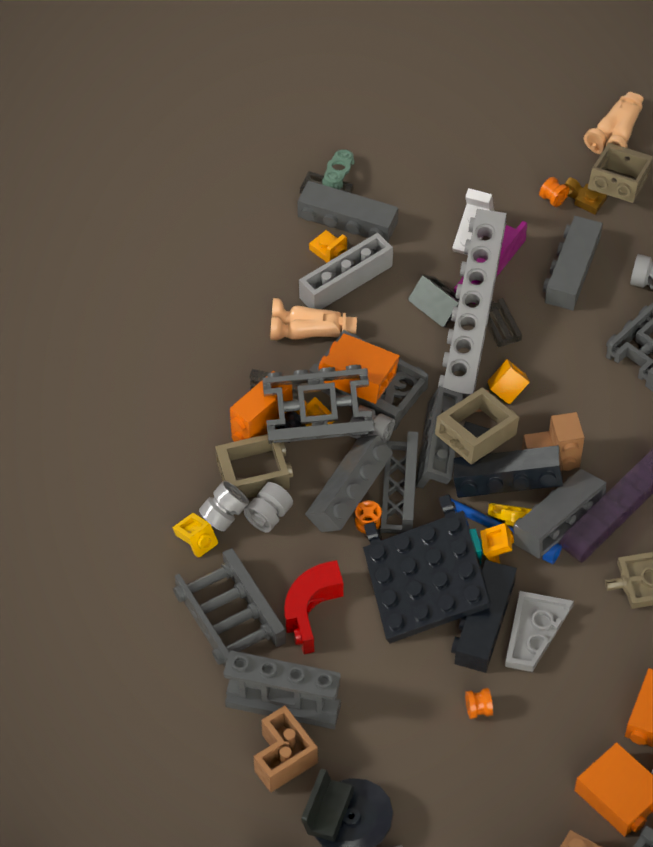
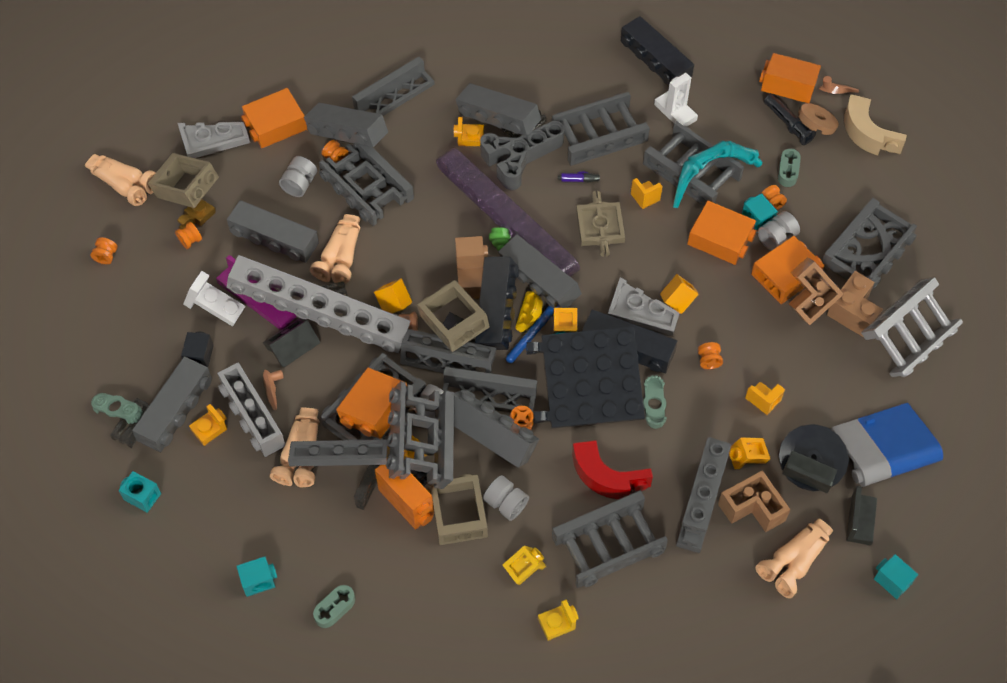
camera: 85 degrees left, 5 degrees up
(135, 570) = (558, 620): none -> yellow bracket
(138, 378) = (330, 602): none -> sand green beam
(165, 306) = (257, 576): none -> teal brick
(221, 509) = (507, 533): light grey wheel -> none
(223, 800) = (796, 556): none -> light nougat piece
(247, 203) = (143, 500): none -> teal brick
(288, 336) = (338, 453): none -> dark grey fence
(353, 749) = (748, 451): none -> light orange bracket
(382, 289) = (269, 385): none -> nougat bar
(414, 221) = (198, 347): none -> black brick
(427, 651) = (654, 390): none -> sand green piece
(432, 766) = (764, 397): none -> light orange panel
(521, 127) = (103, 250): none -> orange wheel
(561, 325) = (339, 252): none -> light nougat piece
(563, 667) = (679, 294): none -> light orange panel
(583, 807) = (818, 294): none -> medium nougat brick
(610, 474) = (499, 237): none -> bright green plate

